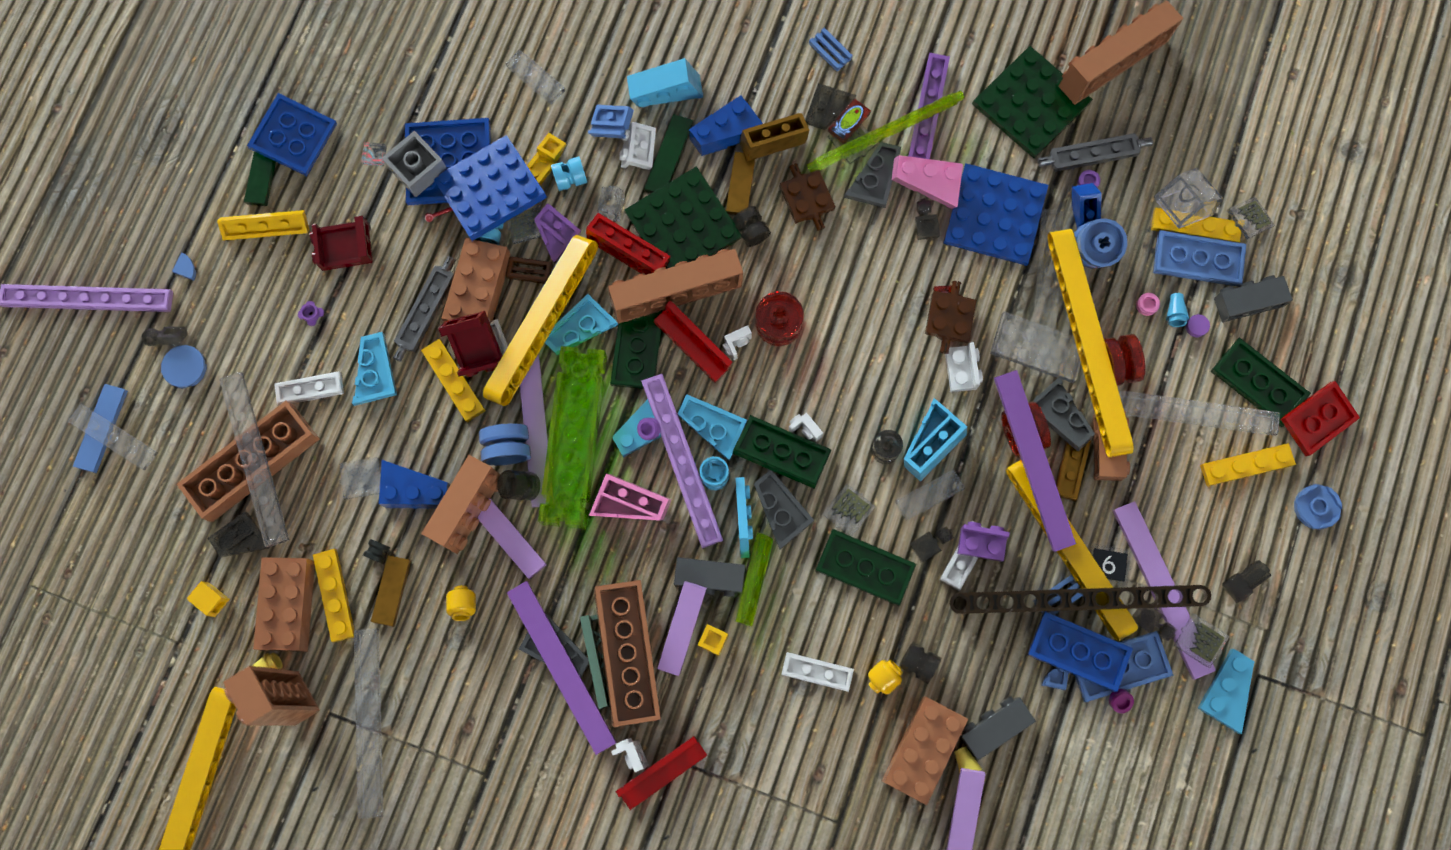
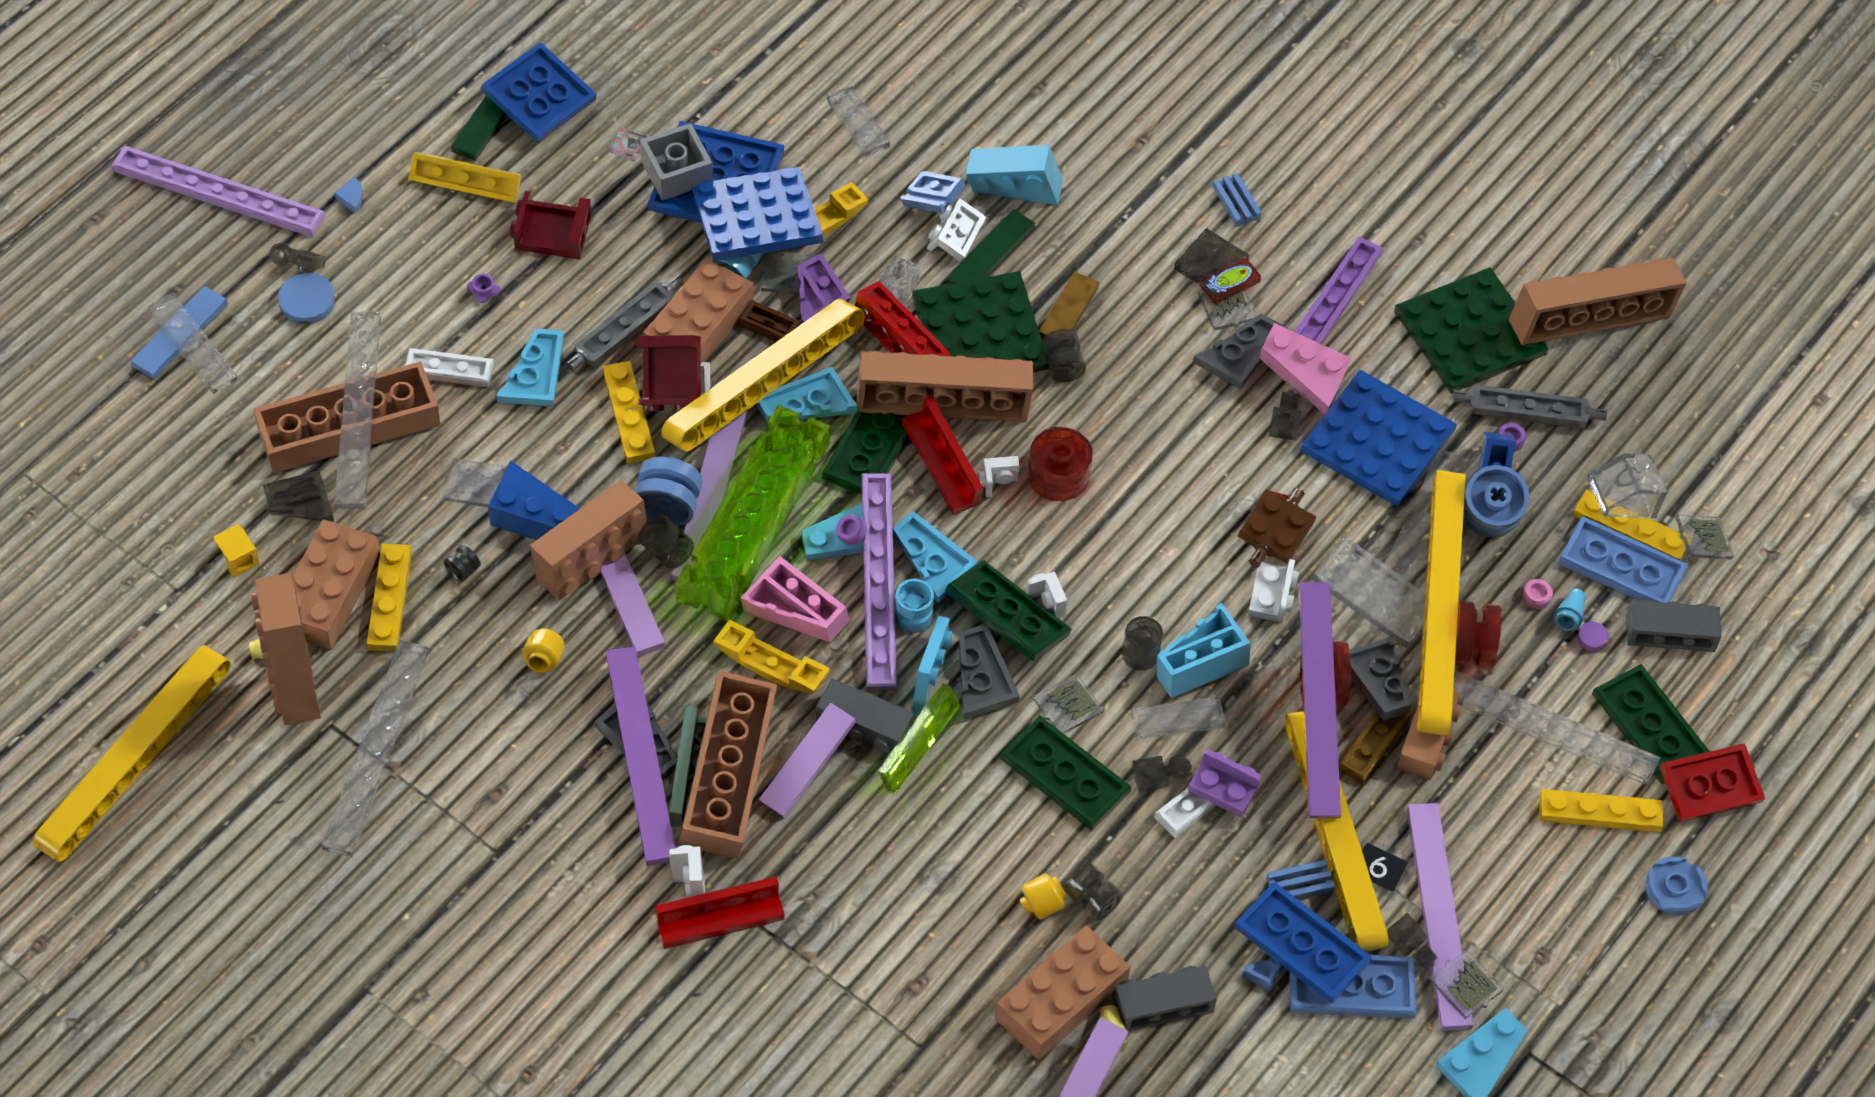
camera: 10 degrees right, 20 degrees down
(391, 591) = (461, 614): pearl gold tile -> none
(429, 217) = (668, 230): red hinge -> none
(569, 173) = (859, 232): medium azure wheel -> none
(627, 552) = (769, 661): none -> yellow slope
(713, 640) = (841, 787): yellow panel -> none
(723, 127) = (1073, 240): blue wedge -> none
(774, 136) = (1128, 265): pearl gold brick -> none
(807, 196) = (1146, 347): reddish brown plate -> none
(817, 672) = (959, 869): white tile -> none
(885, 131) = (1270, 302): clear neon green piece -> none
(1065, 595) = (1330, 887): dark brown beam -> none
(1121, 701) = (1337, 1020): magenta tile -> none
(1242, 584) = (1542, 938): clear smoke piece -> none

